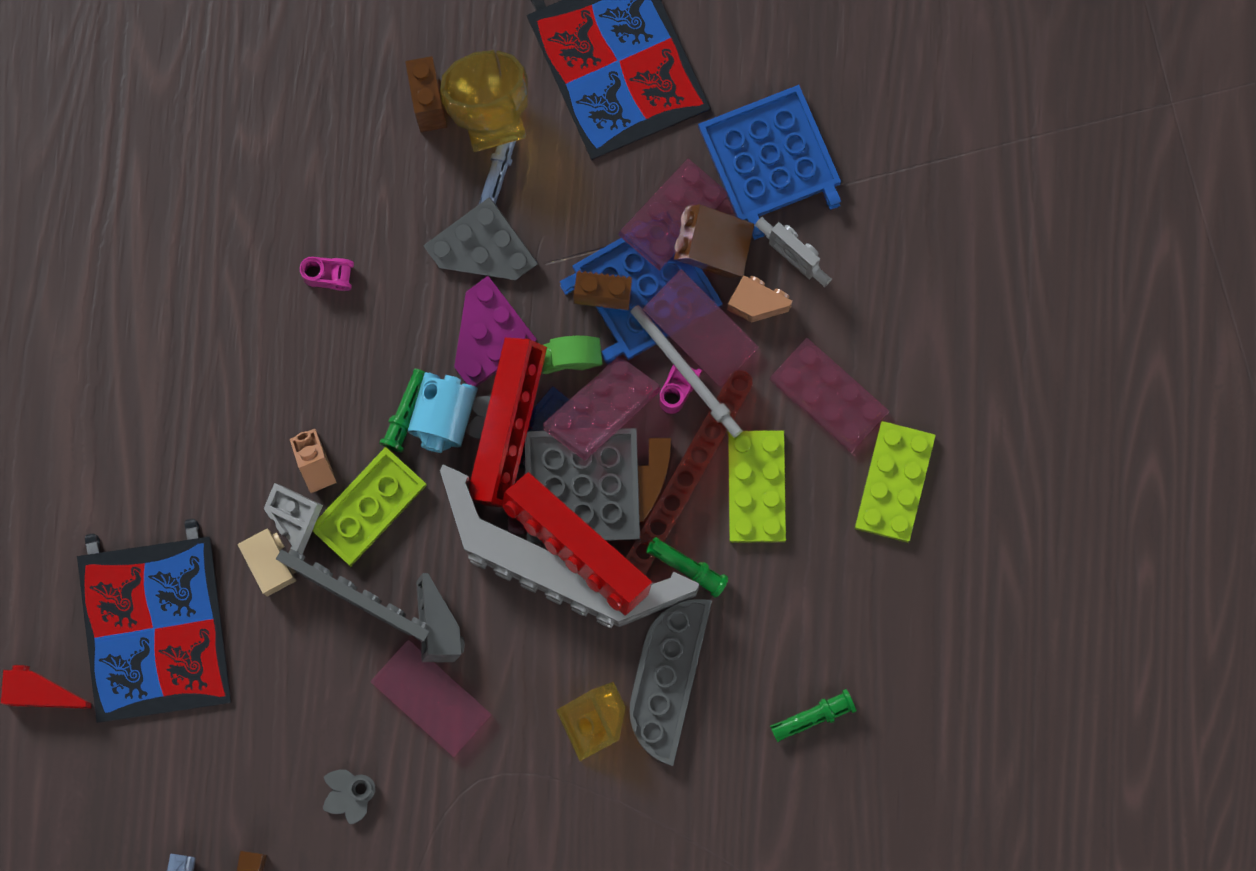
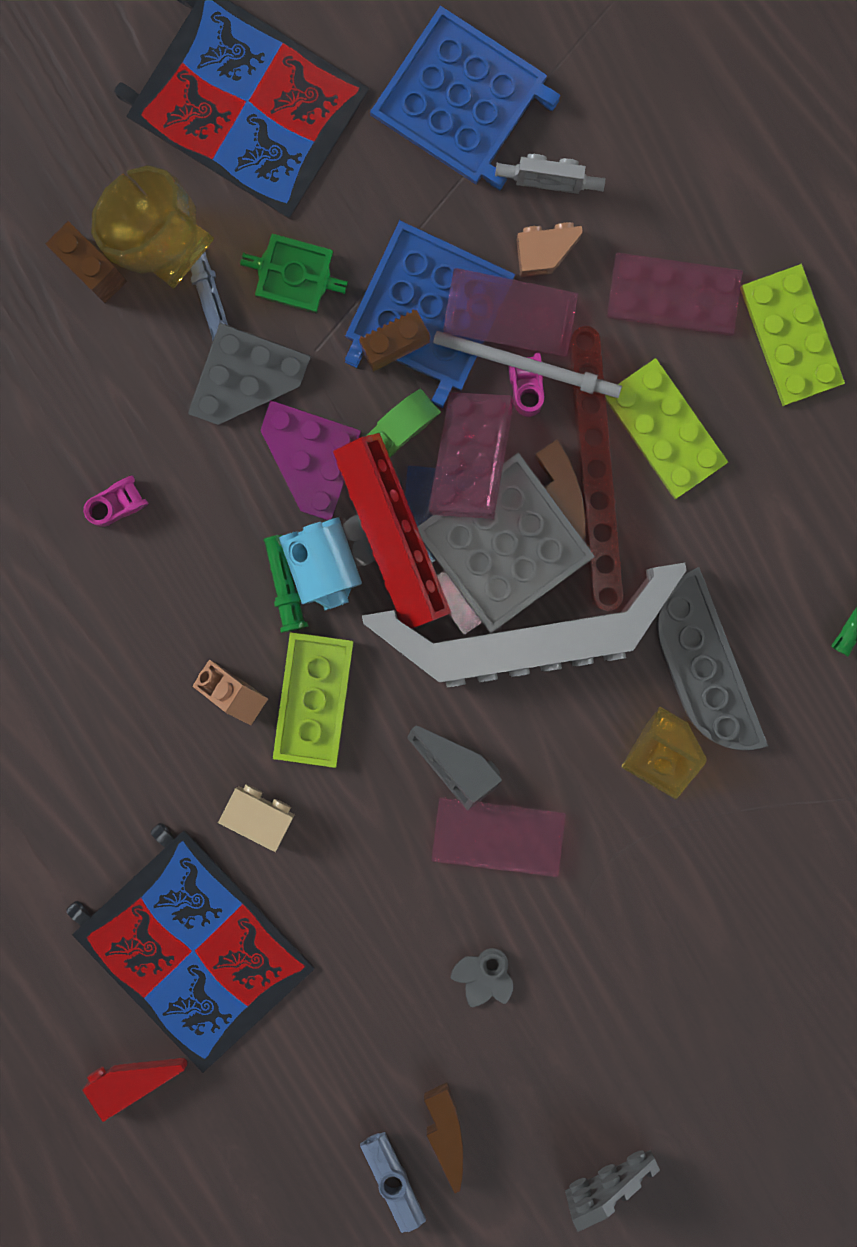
camera: 35 degrees left, 10 degrees up
(293, 515) = (248, 756): light grey wing -> none
(347, 591) = (350, 795): dark grey plate -> none
(567, 199) = (294, 273): none -> green plate
(576, 544) = (544, 605): red brick -> none
(658, 222) = (408, 218): clear pink plate -> none
(695, 571) = (668, 550): green pin -> none
(713, 241) = (467, 218): reddish brown brick -> none

